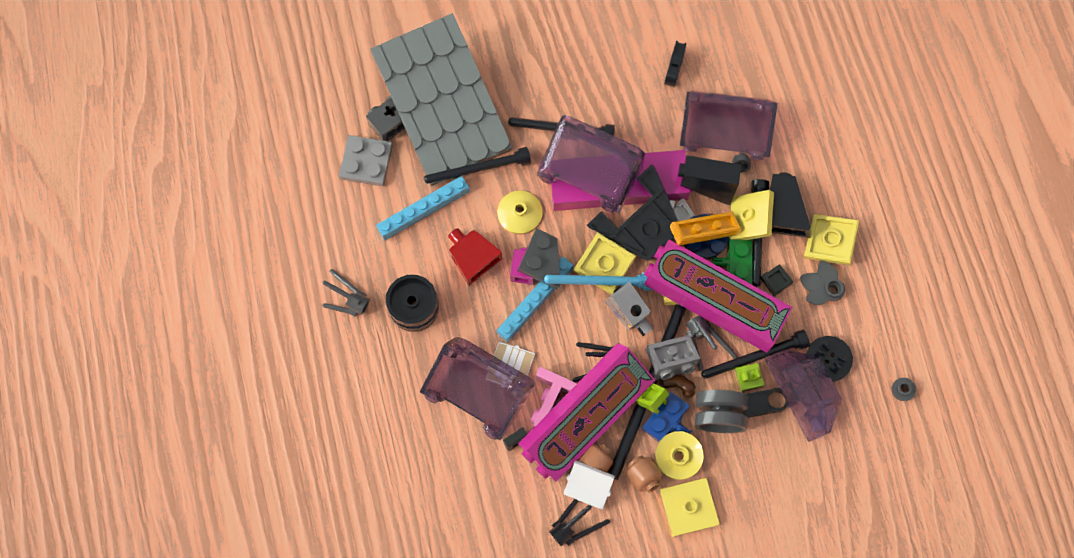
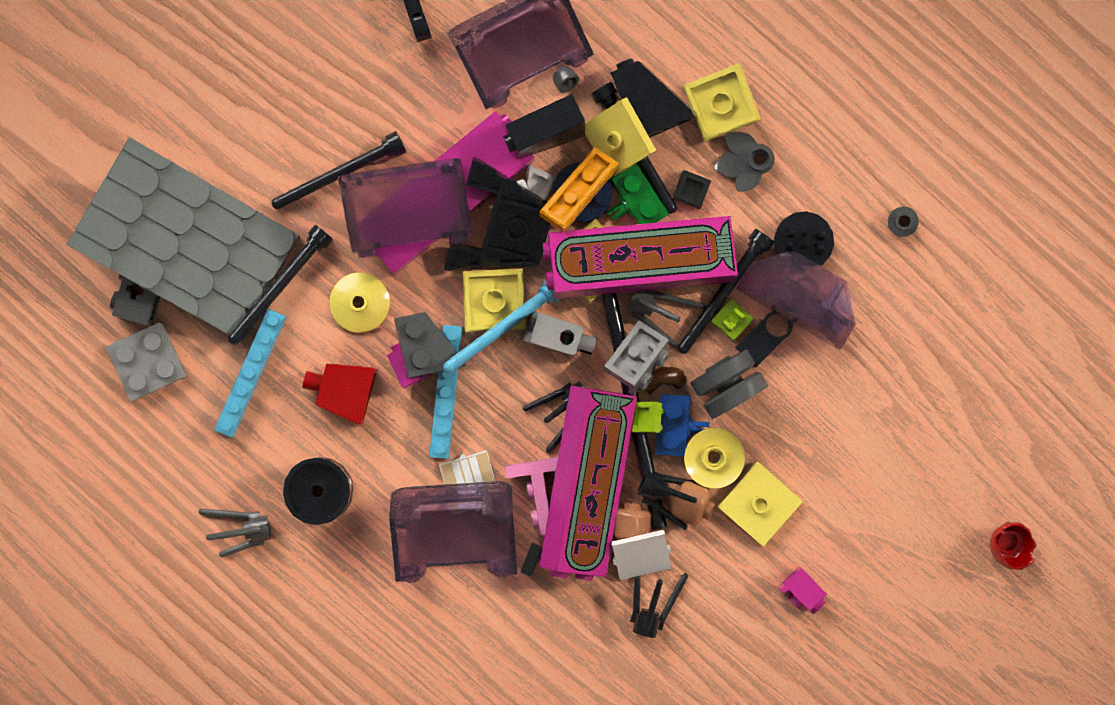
camera: 35 degrees left, 15 degrees up
(628, 445) = (654, 487): none -> black plant

